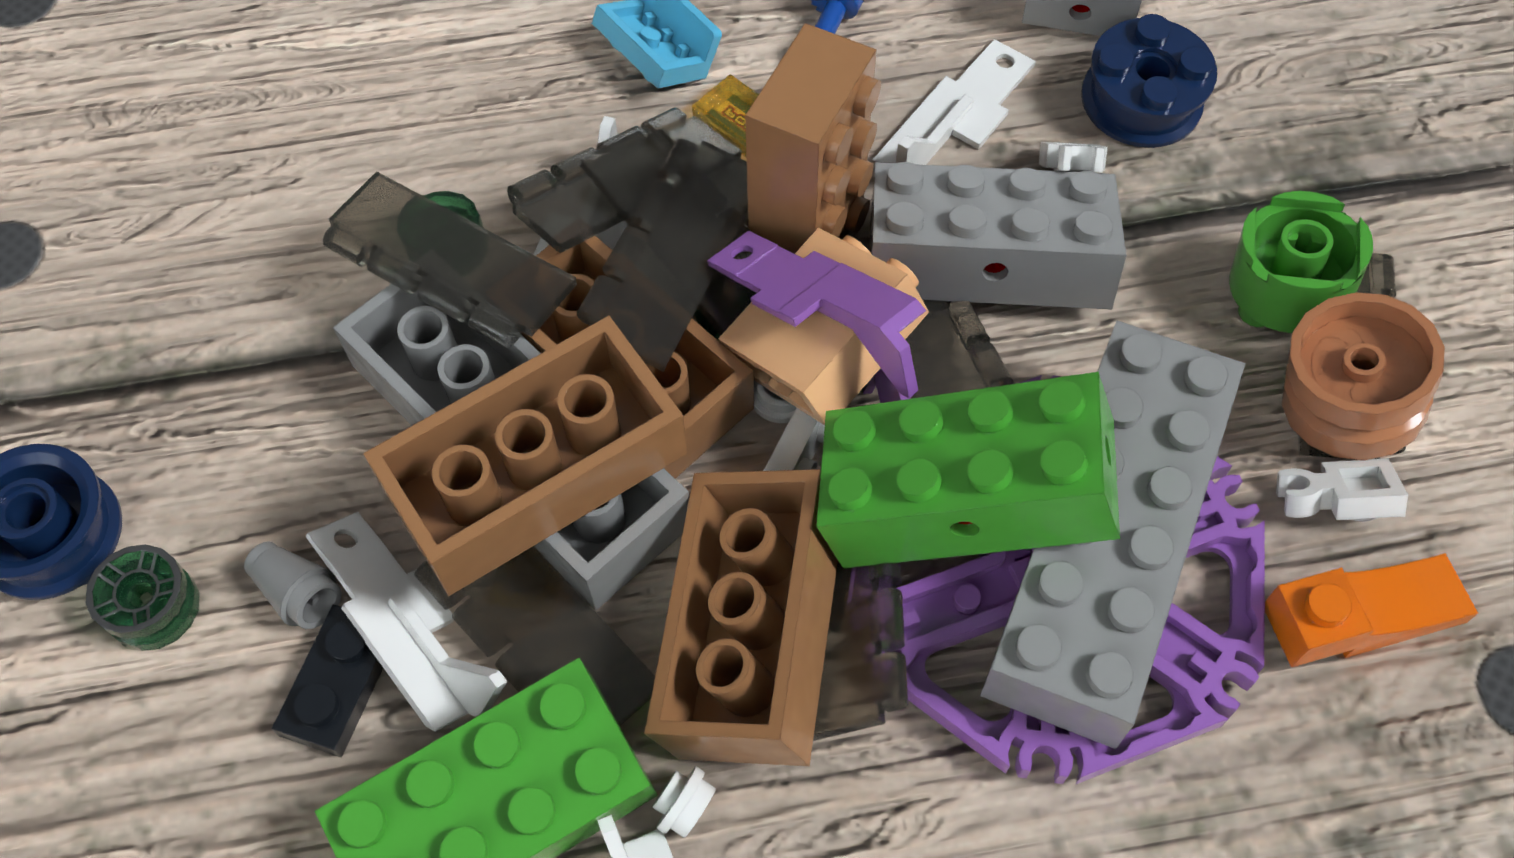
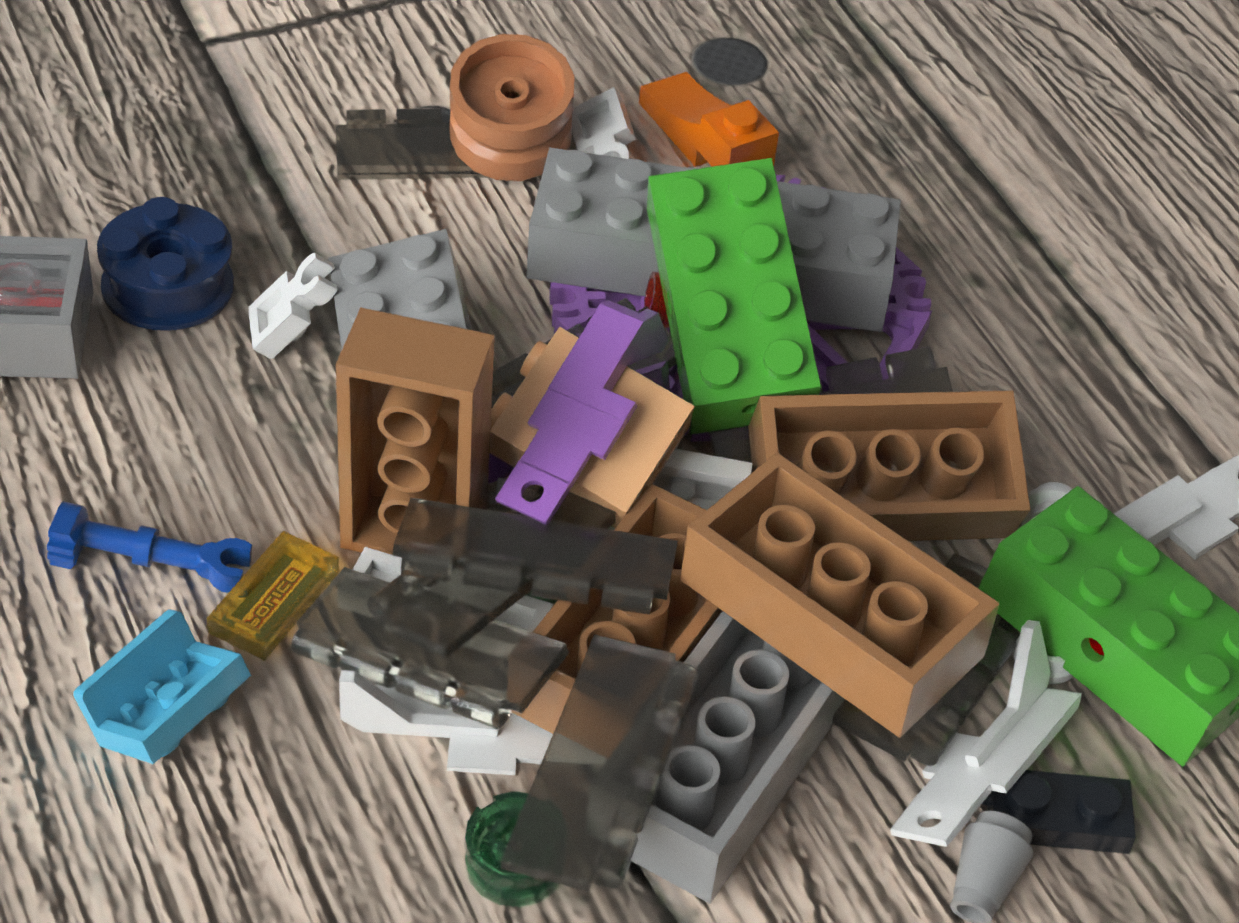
camera: 110 degrees left, 15 degrees down
(959, 108) = (222, 426): white piece -> none
(1296, 258) = (391, 149): bright green brick -> none

